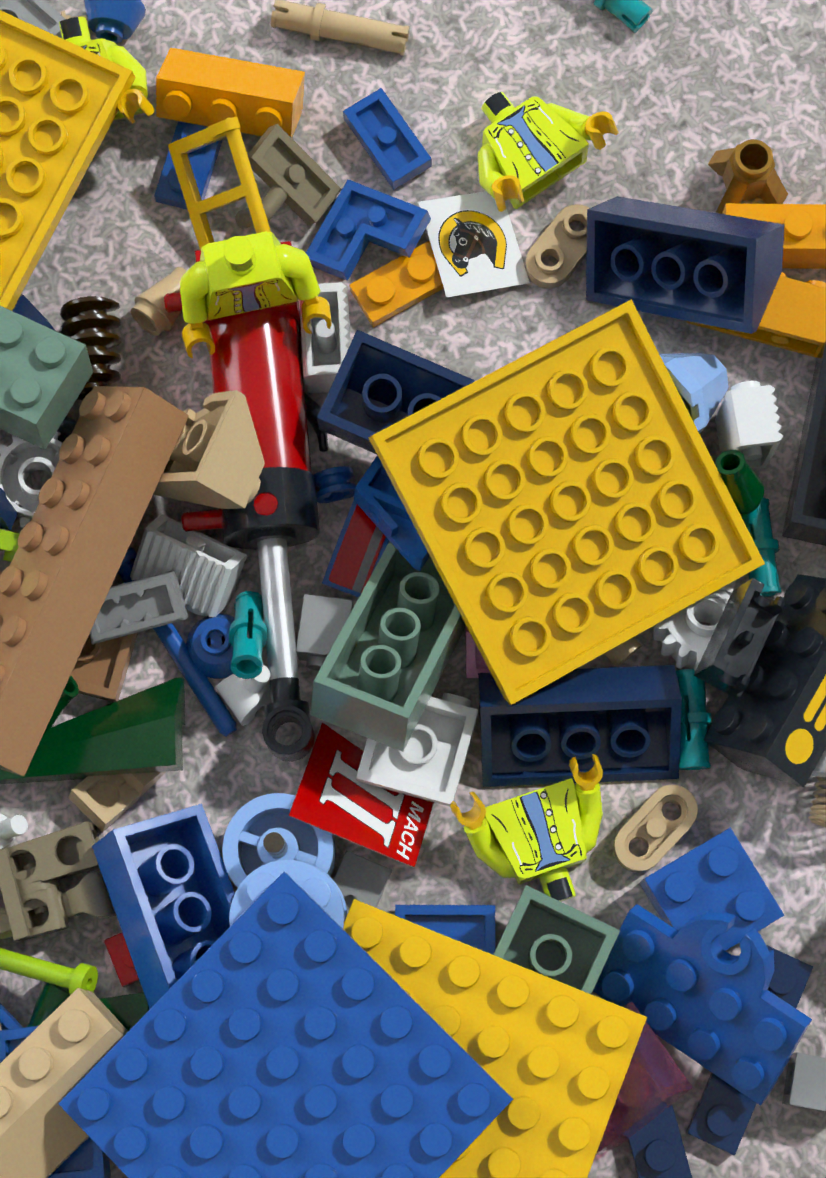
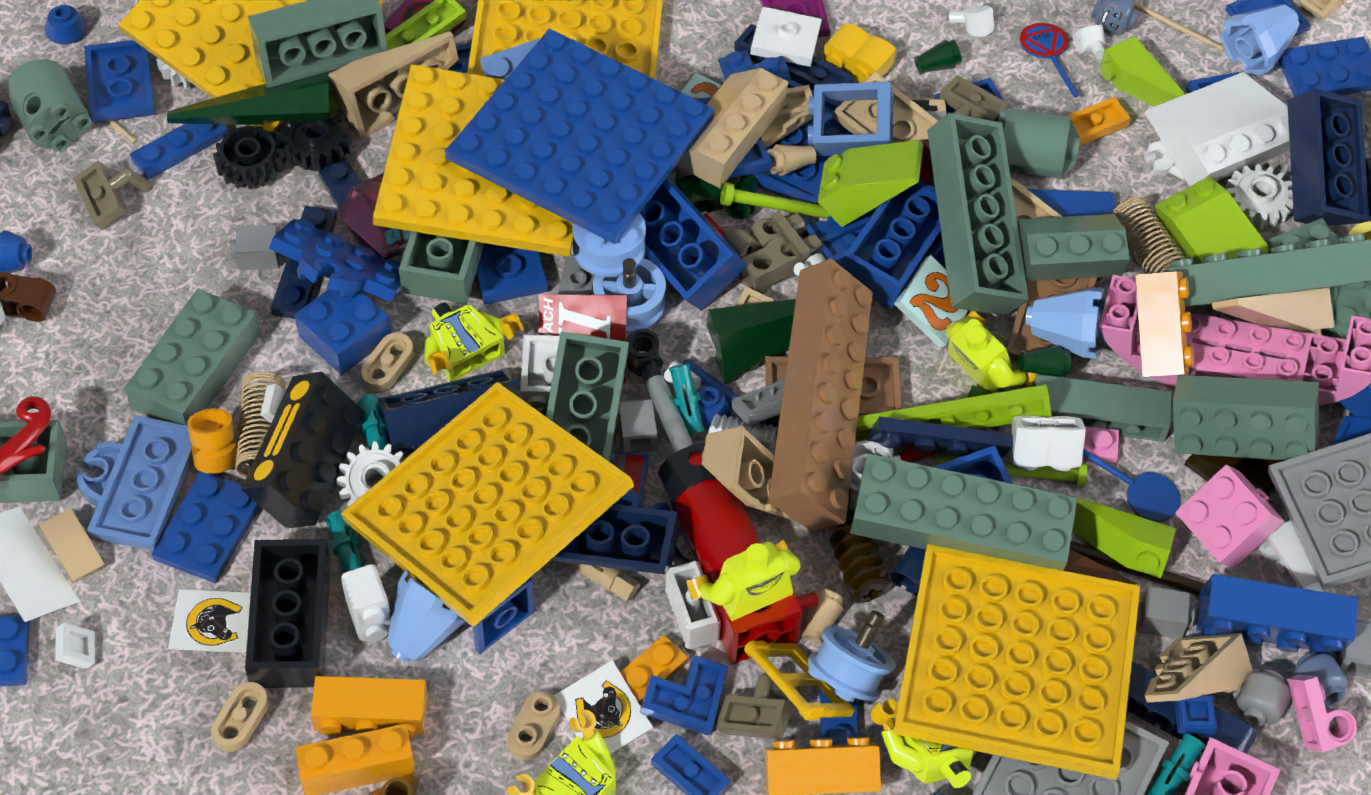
camera: 160 degrees right, 20 degrees down
(151, 202) = (852, 661): none -> light blue wheel
(683, 262) = (438, 703): dark blue slope -> none
(739, 639) = (351, 452): black hinge -> none
(740, 481) = (373, 555): dark green cone -> none

